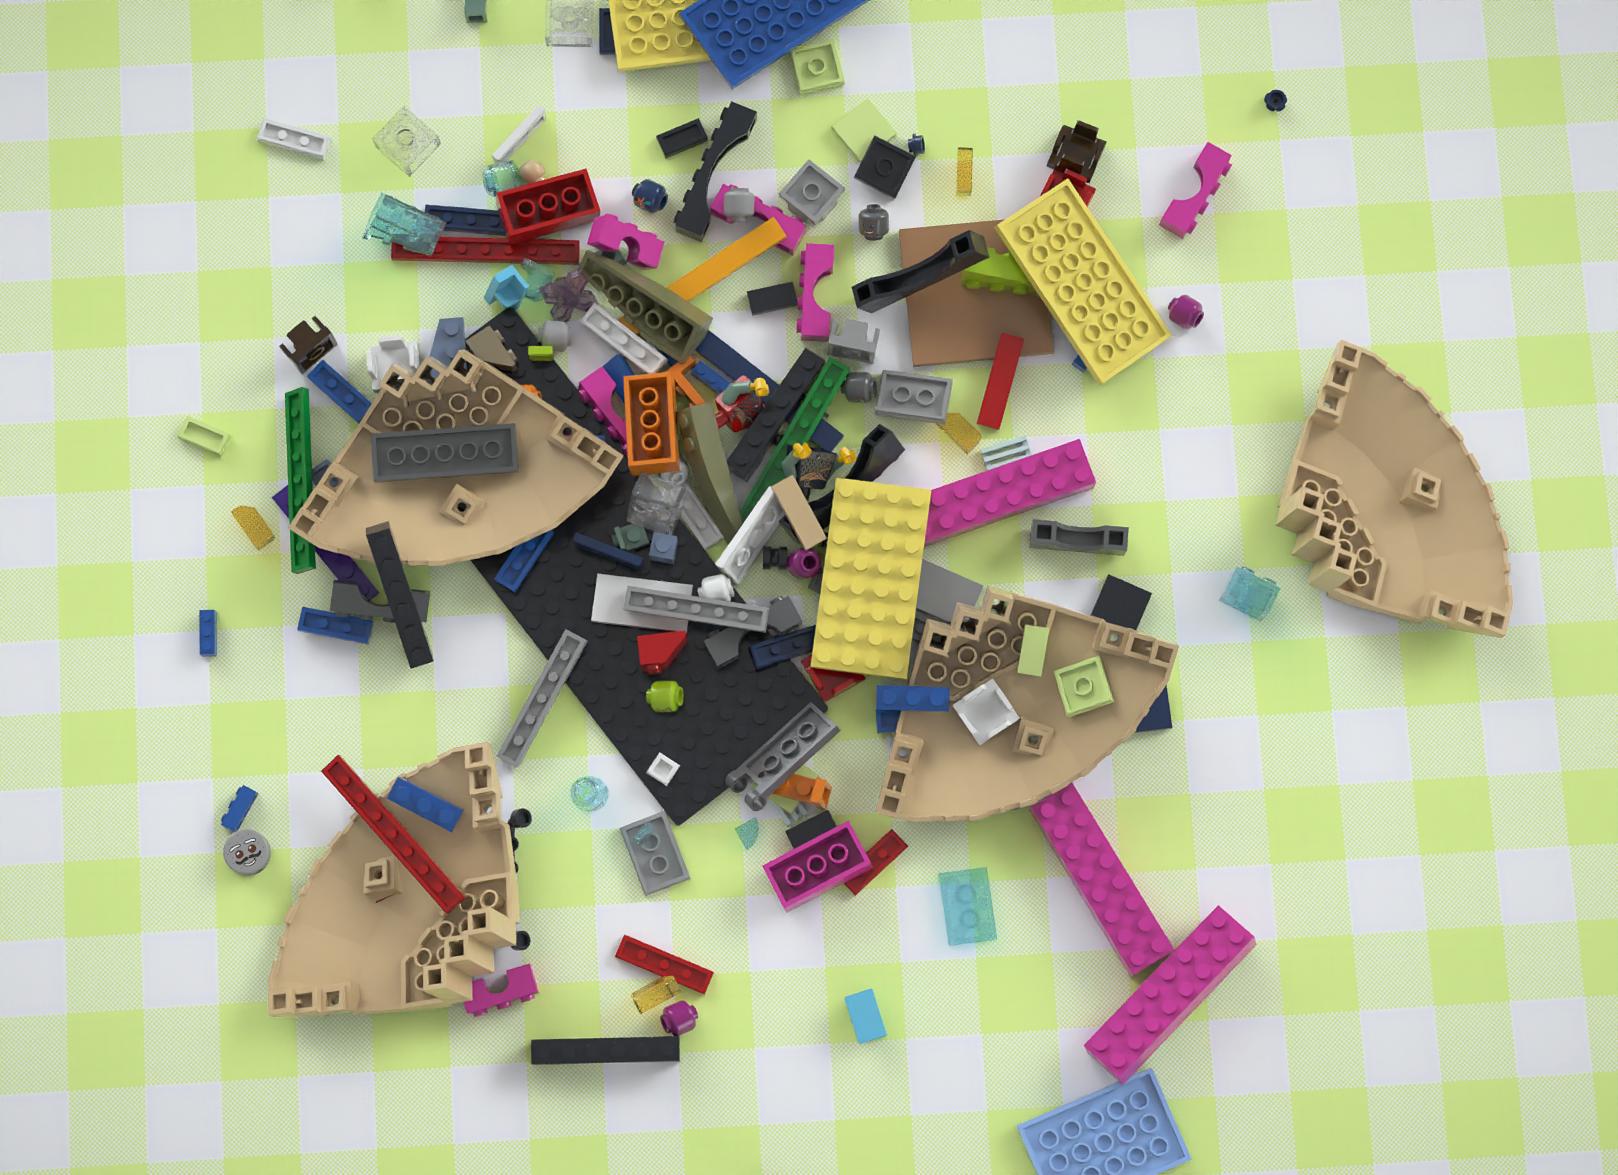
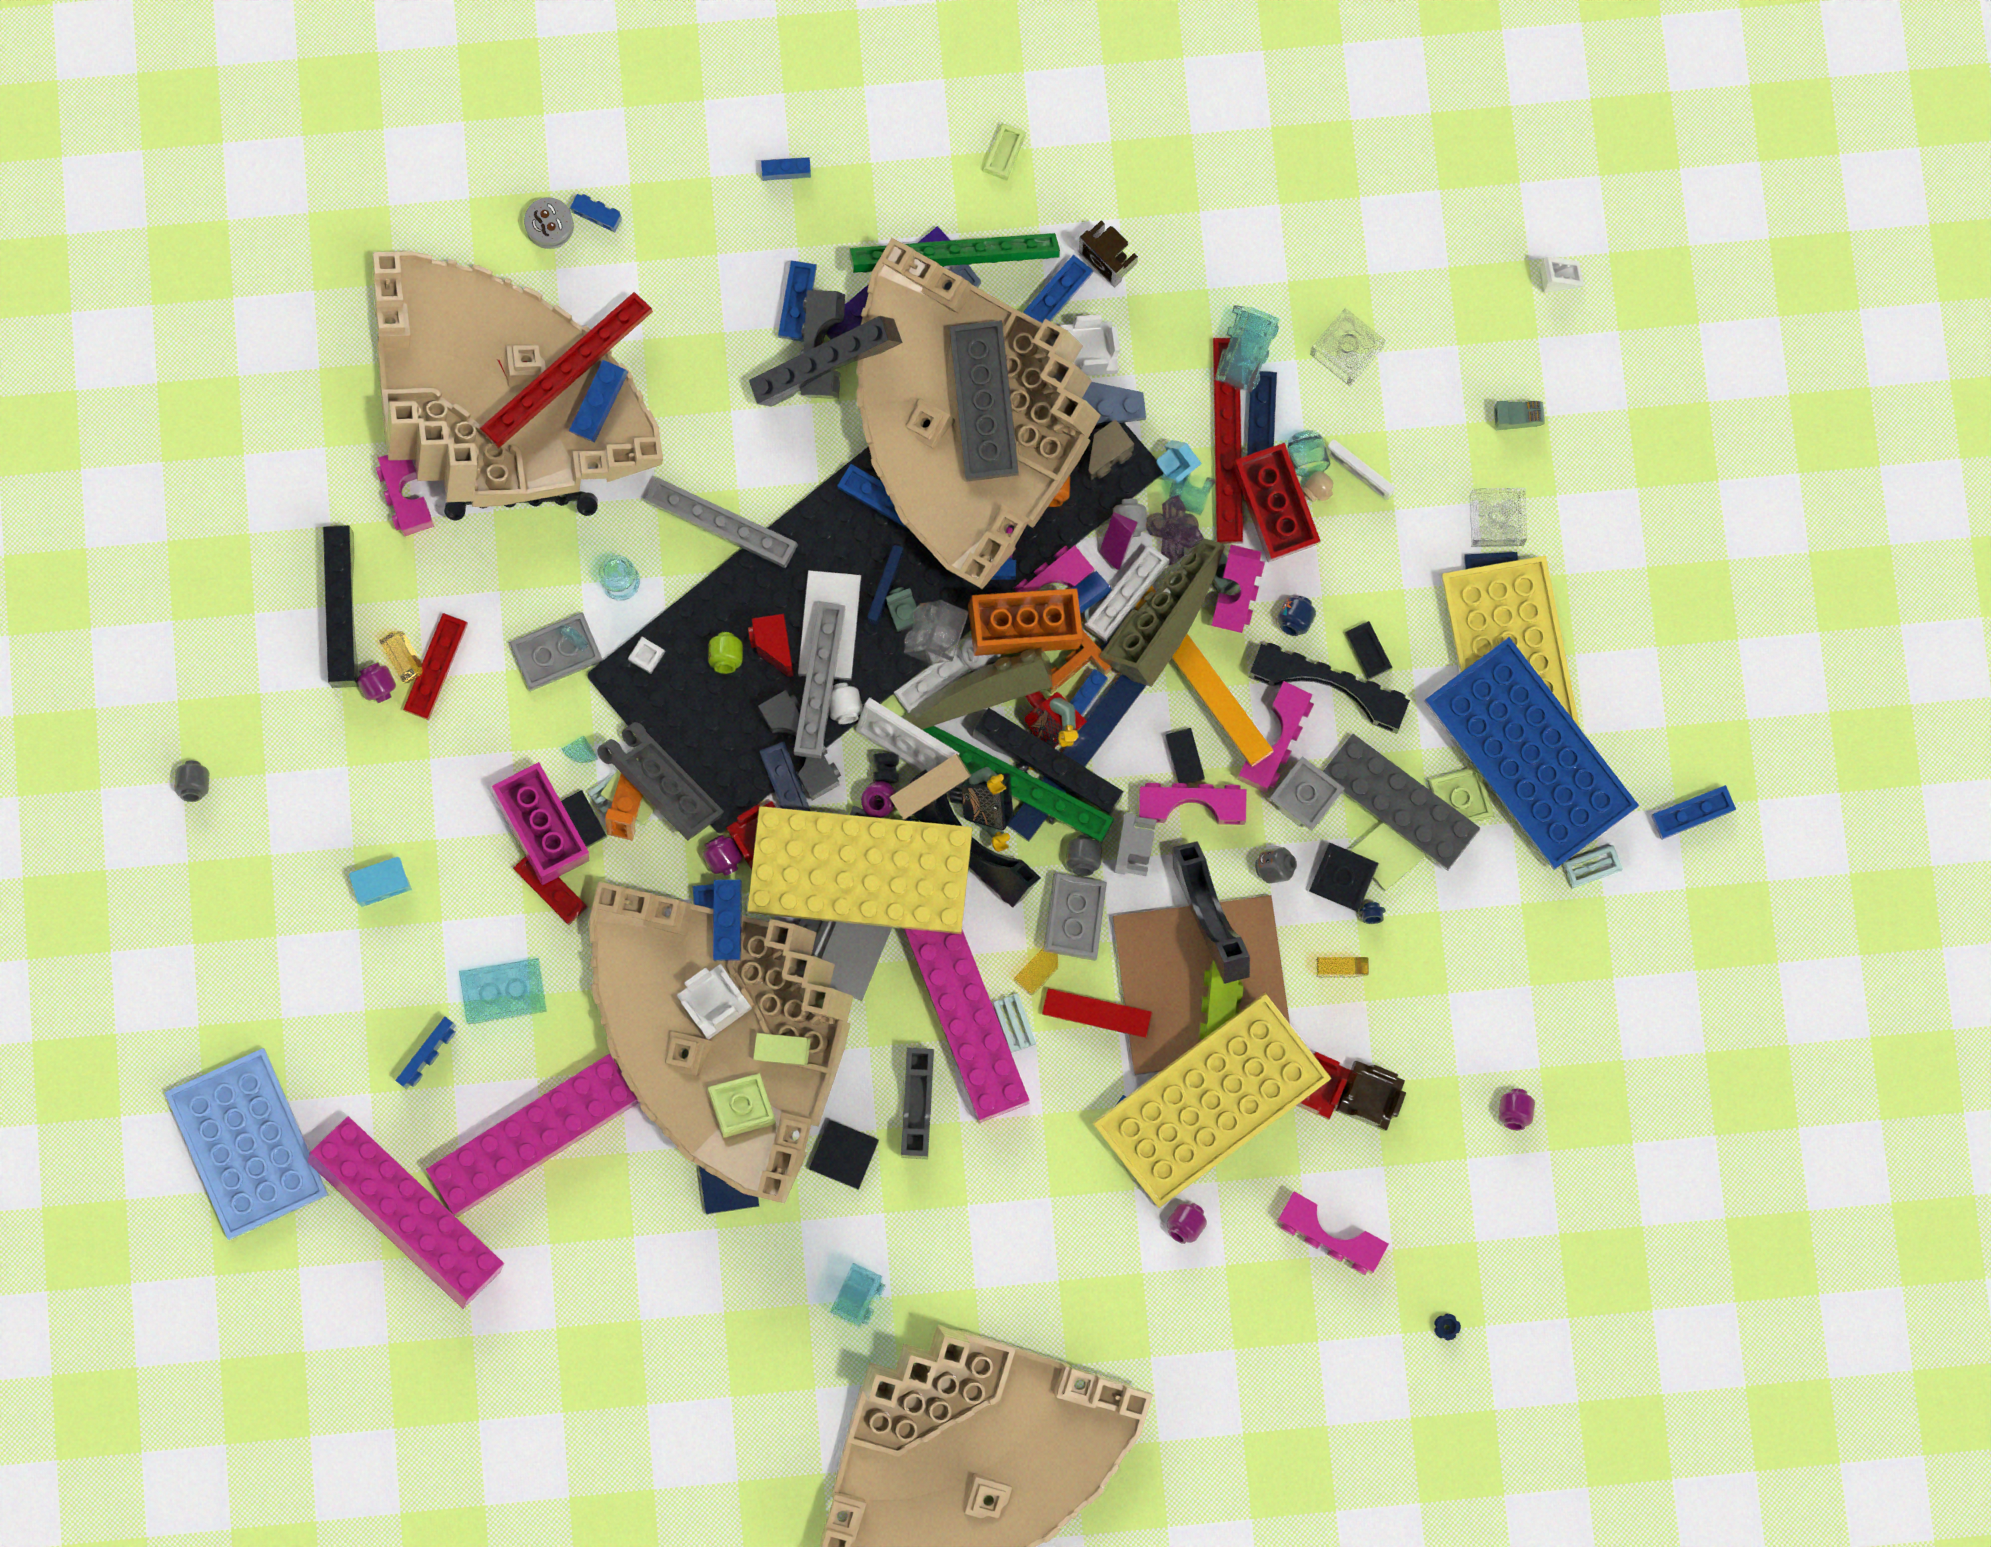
camera: 90 degrees right, 0 degrees up
(253, 525) = (905, 209): clear yellow piece -> none
(294, 138) = (1347, 226): white tile -> none
(541, 353) = (1107, 502): lime tile -> none
(575, 345) = (1117, 539): none -> magenta slope
(663, 548) = (890, 644): sand blue brick -> none
(739, 204) = (1285, 710): light grey head -> none
(820, 115) = (1401, 802): none -> dark grey plate
(850, 705) = (722, 855): none -> magenta head
(1025, 975) = (426, 1054): none -> blue plate
(1091, 32) = (1516, 1109): none -> magenta head

